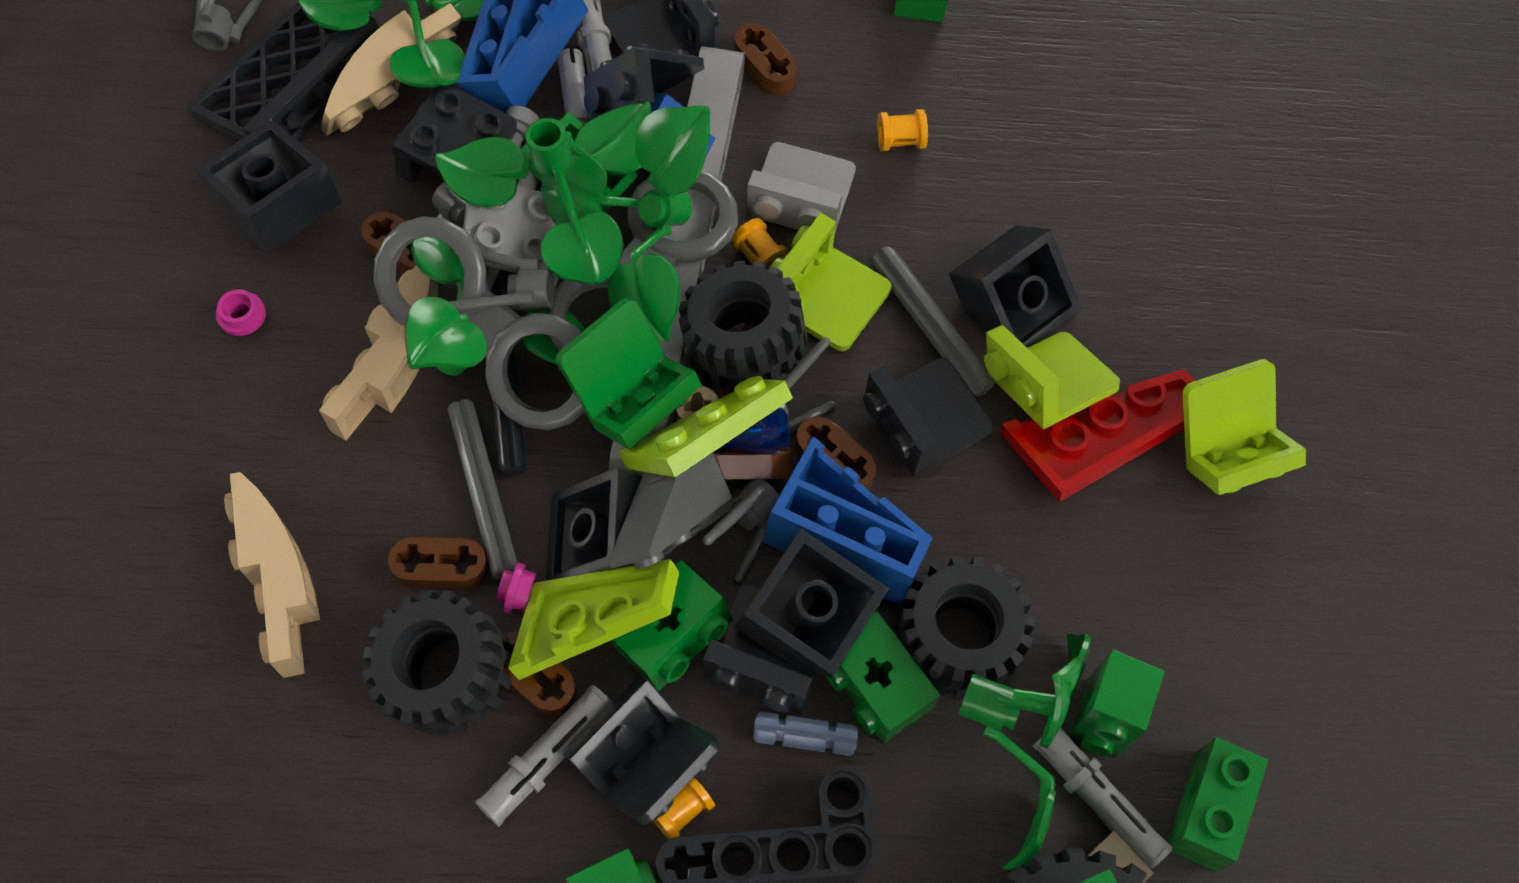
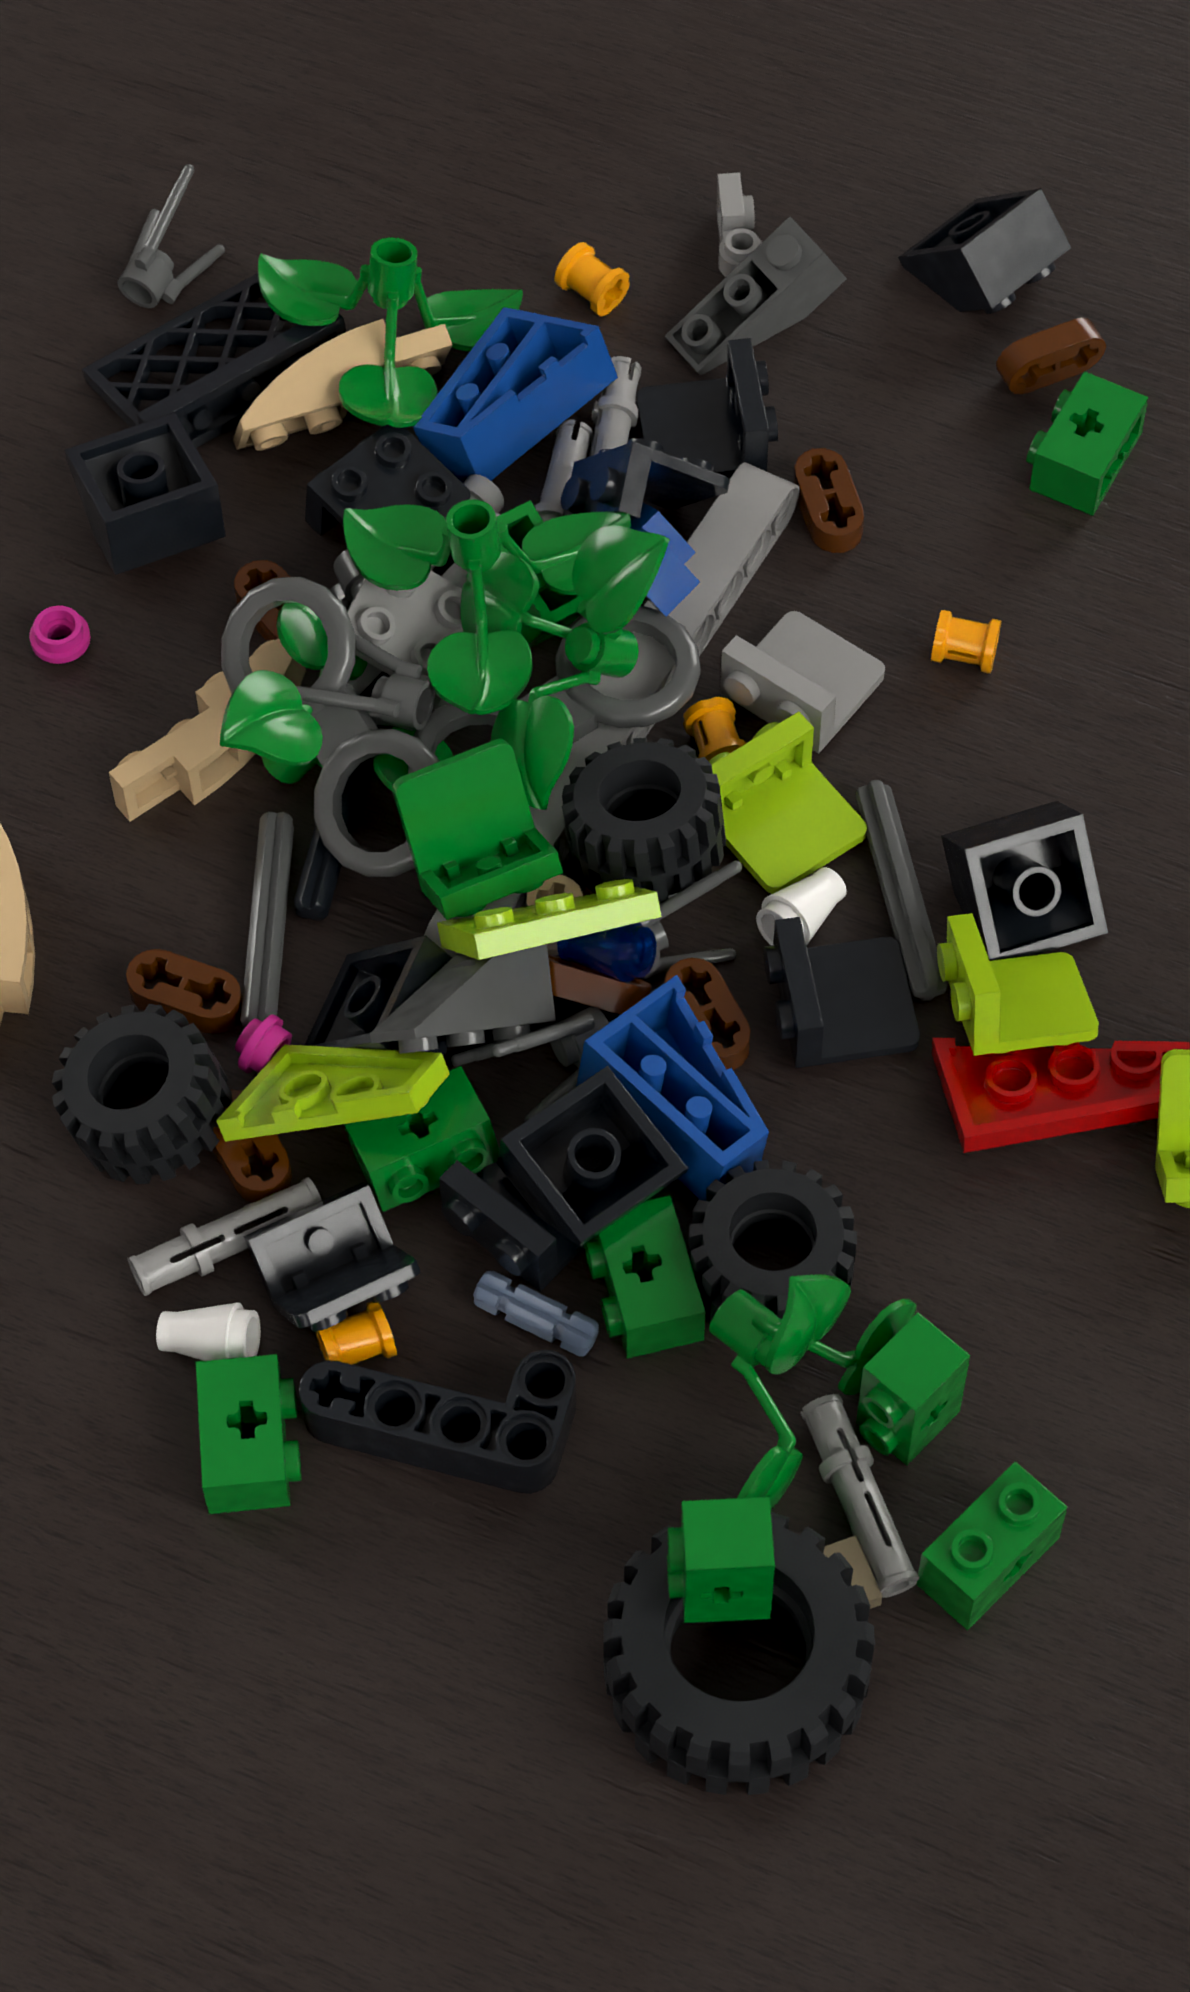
camera: 25 degrees right, 5 degrees down
(566, 842) = (210, 1332): none -> white cone
(868, 354) = (808, 899): none -> white cone

